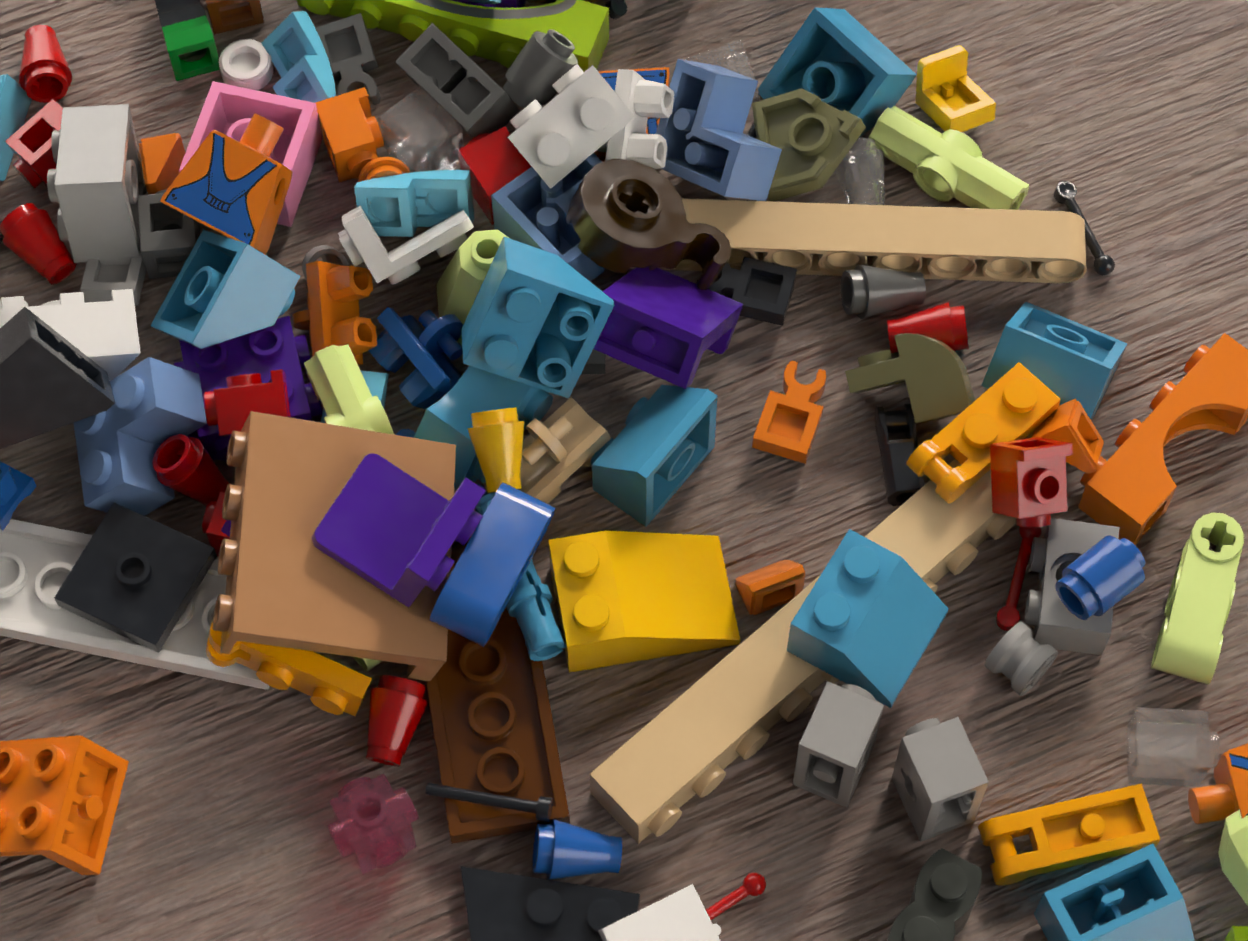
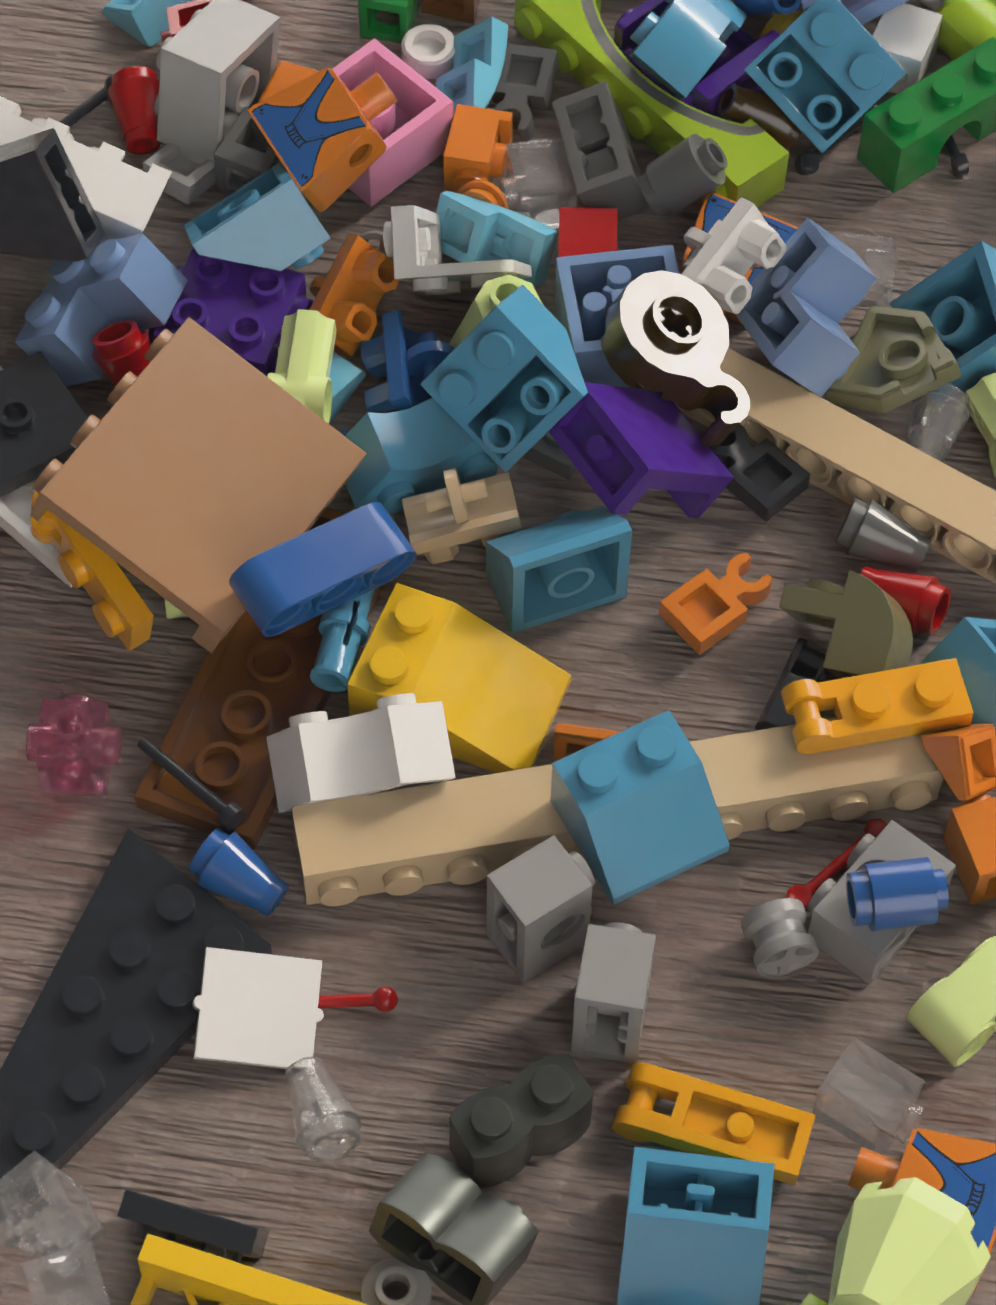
camera: 30 degrees right, 5 degrees down
(246, 393) = (214, 313): red brick -> none
(393, 718) = (159, 669): red cone -> none
(396, 528) = (251, 486): dark purple bracket -> none
(498, 446) = (406, 474): yellow cone -> none
(570, 124) = (663, 224): white bracket -> none
(616, 700) = (361, 753): none -> white brick
(1029, 479) = (879, 749): red brick -> none

